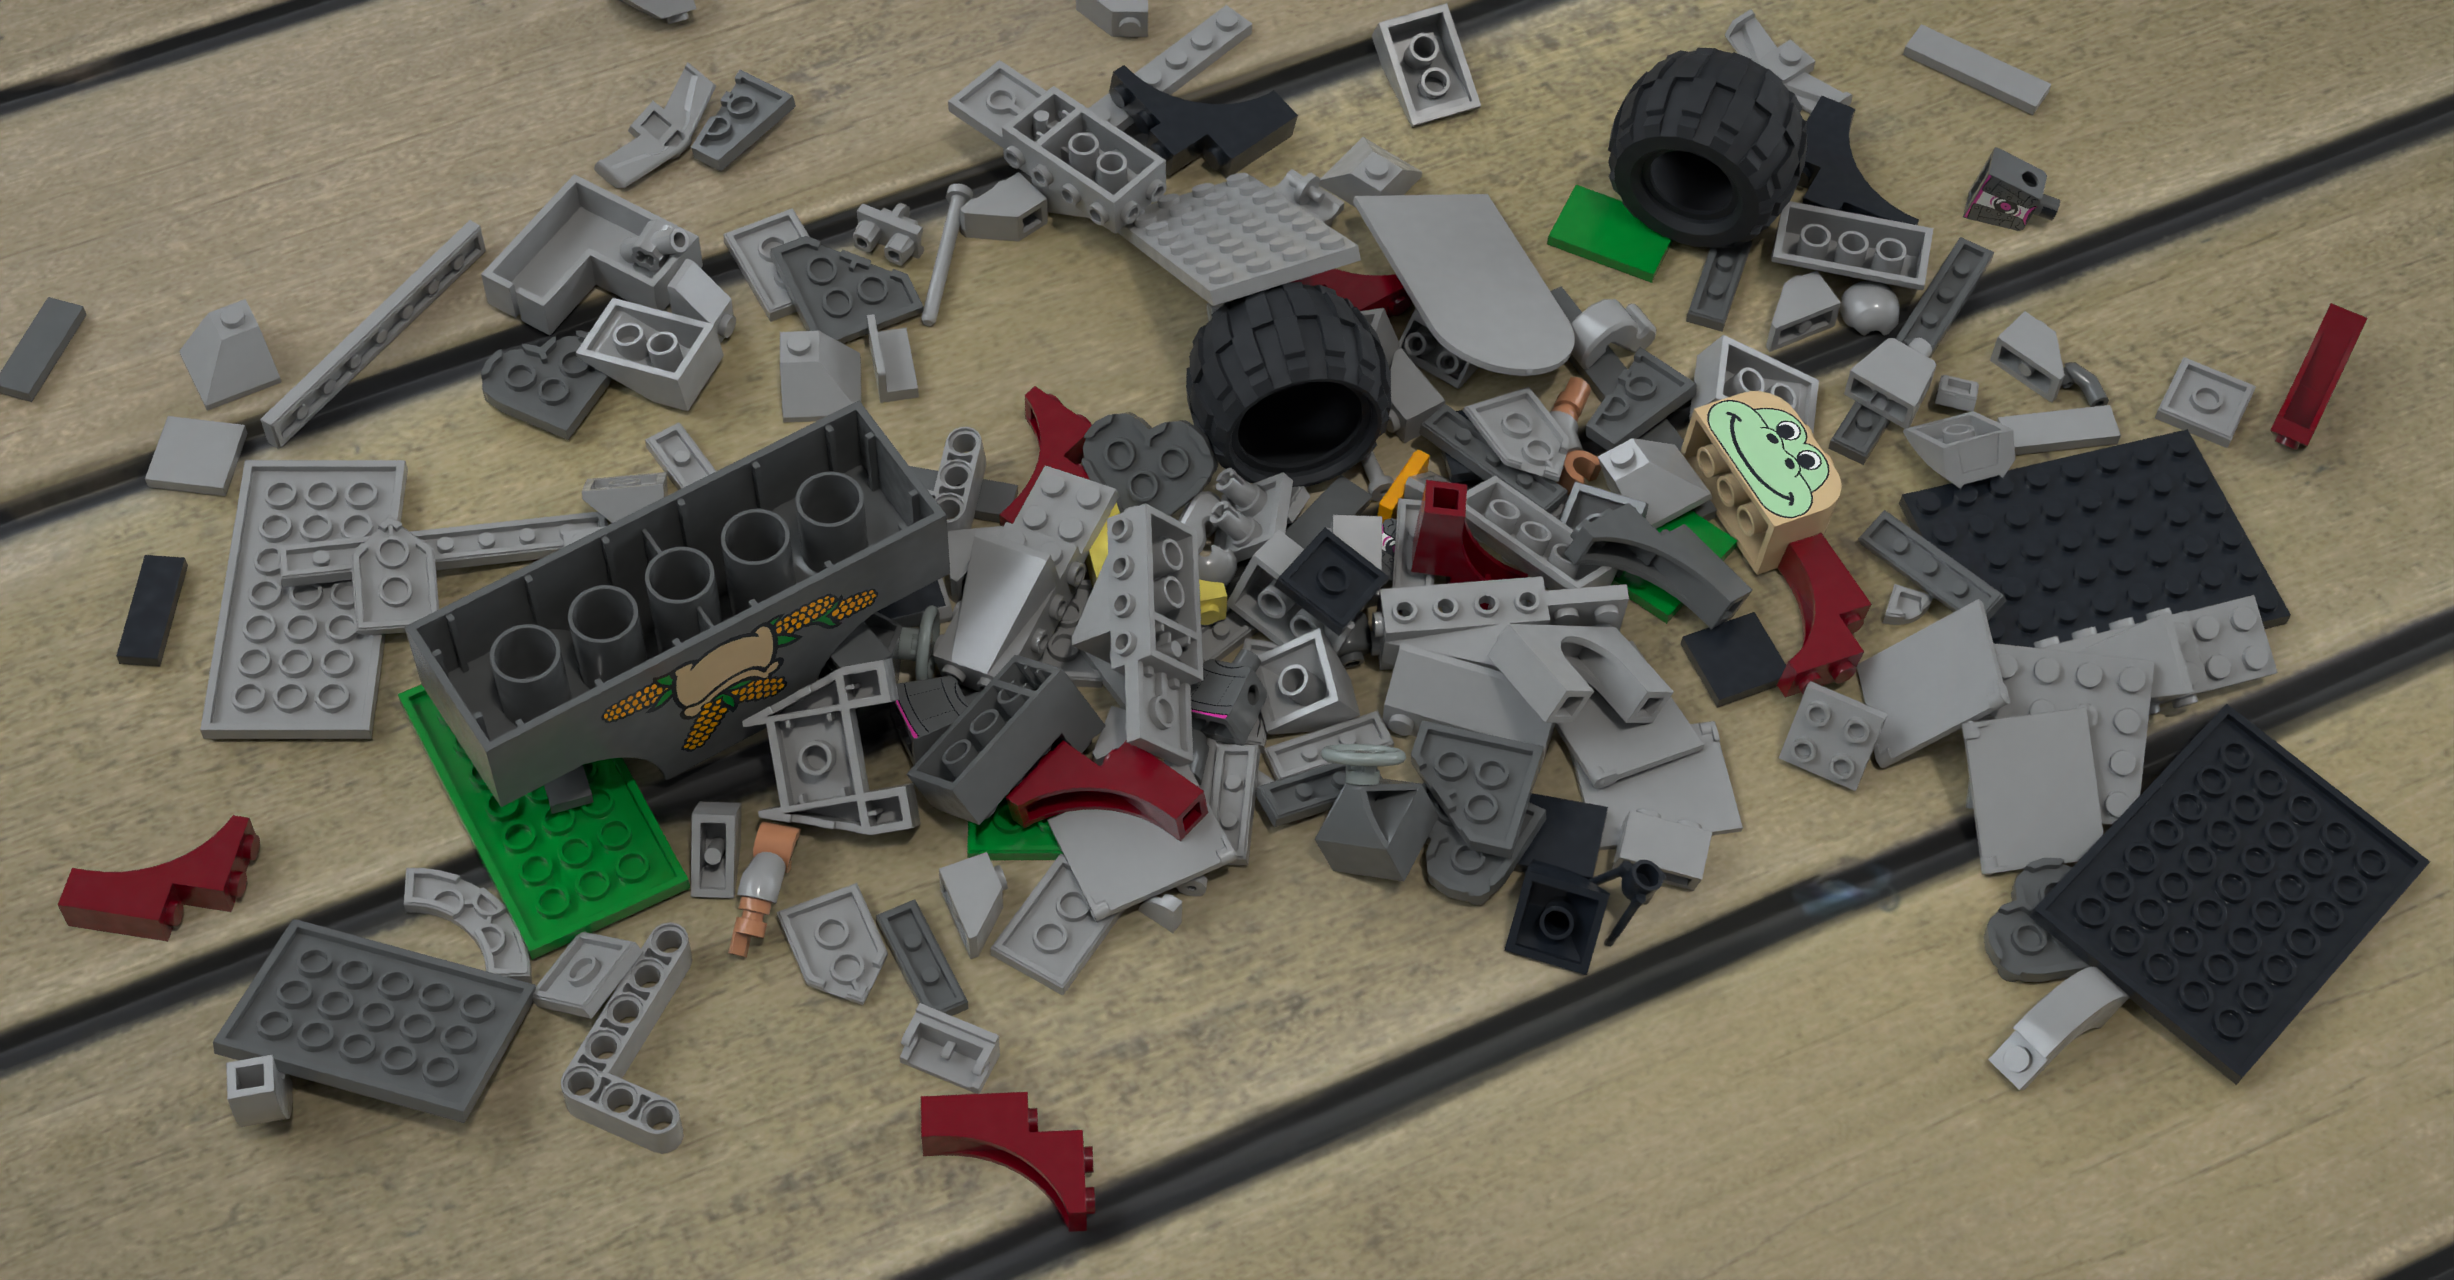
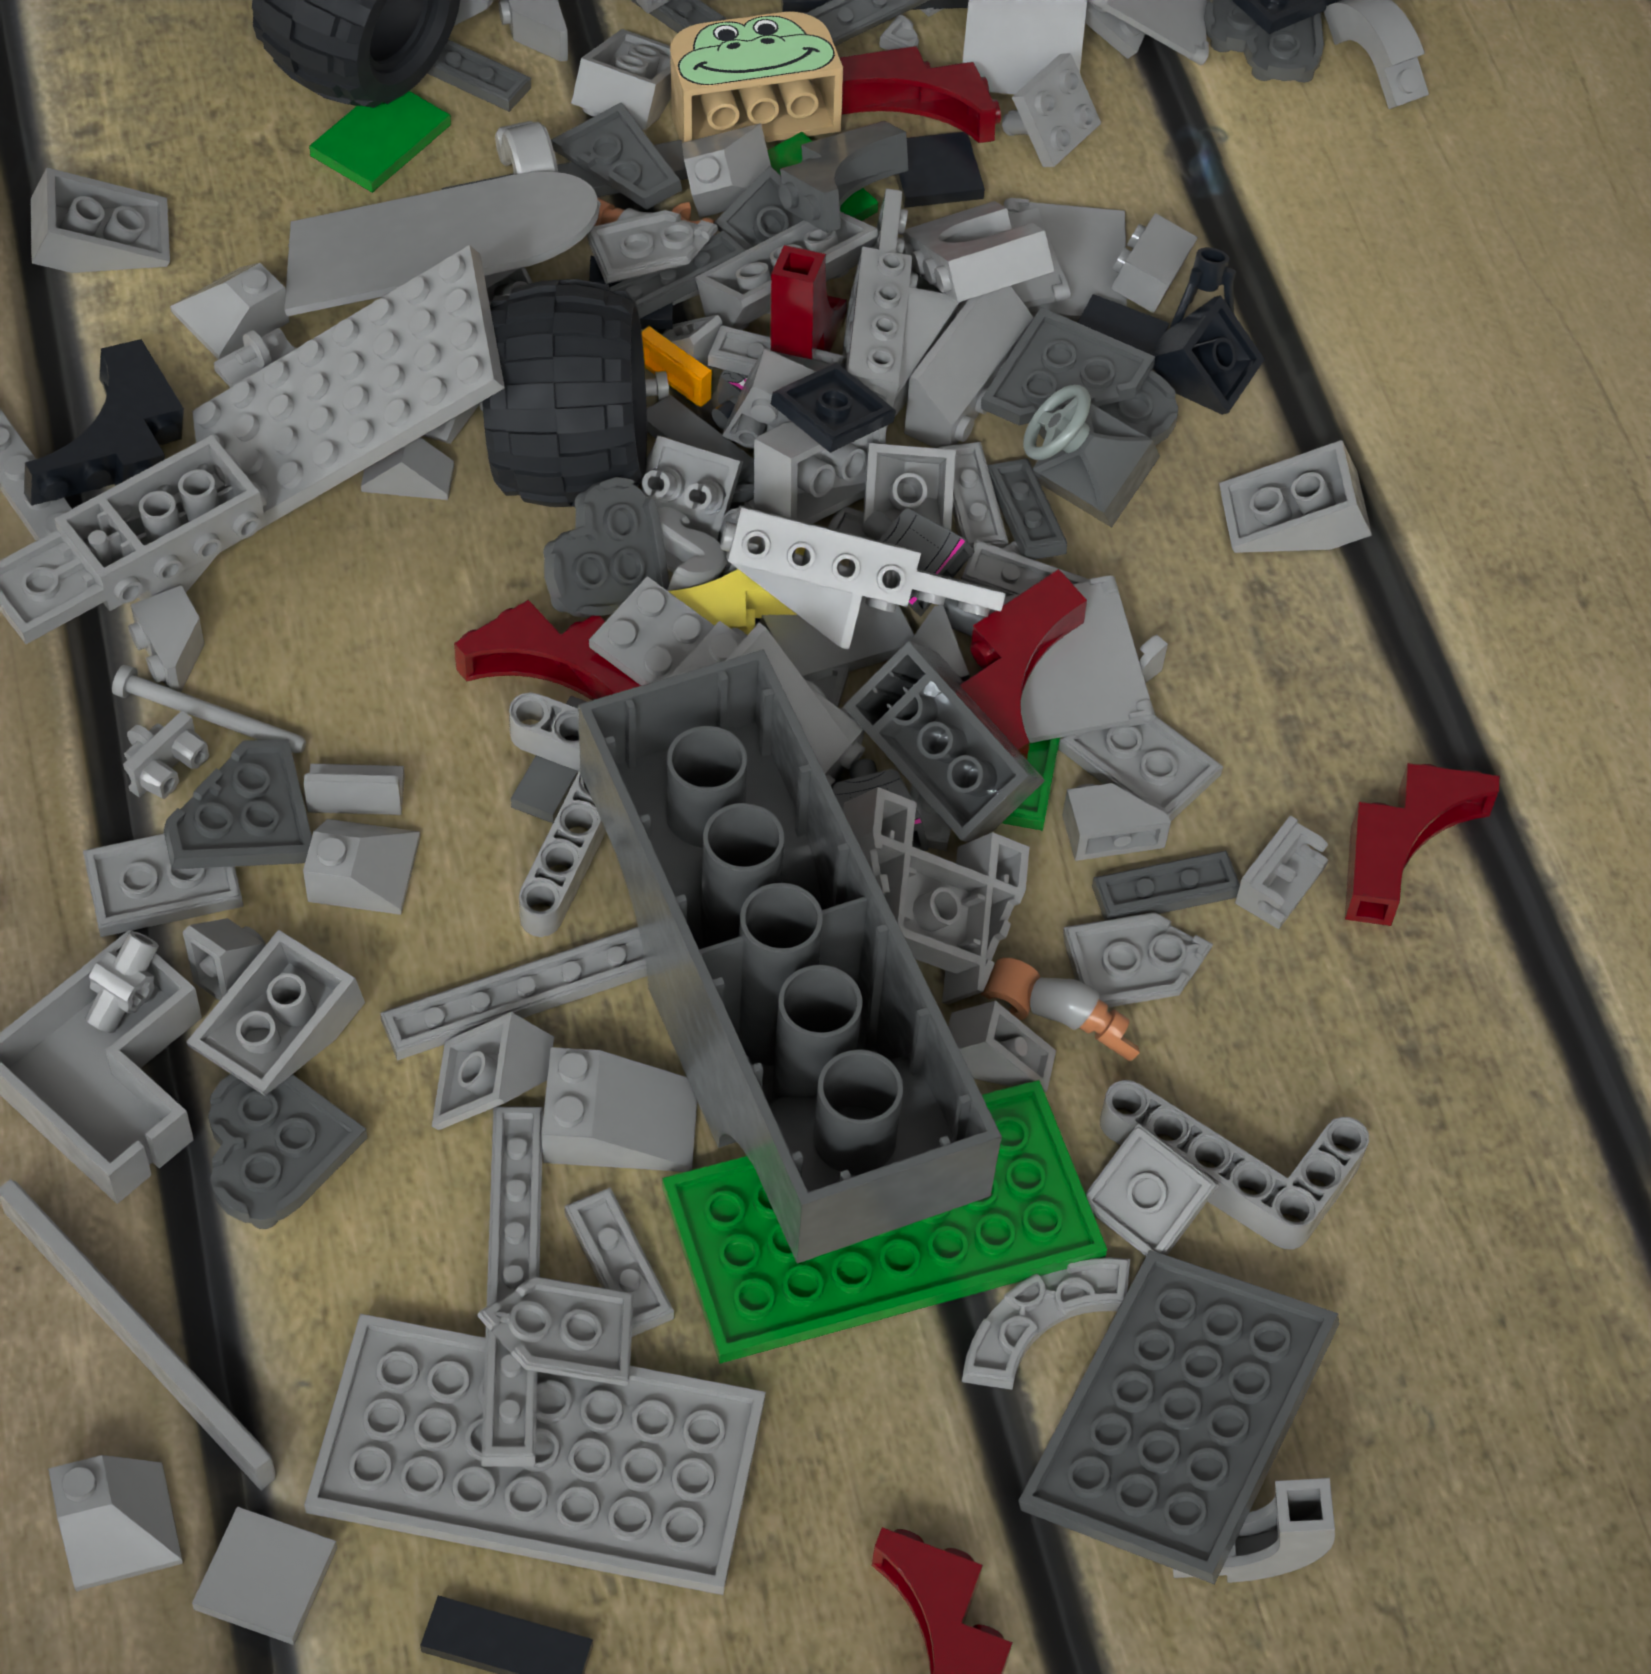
camera: 80 degrees left, 0 degrees up
(1393, 1017) = (1297, 504): none -> light grey slope

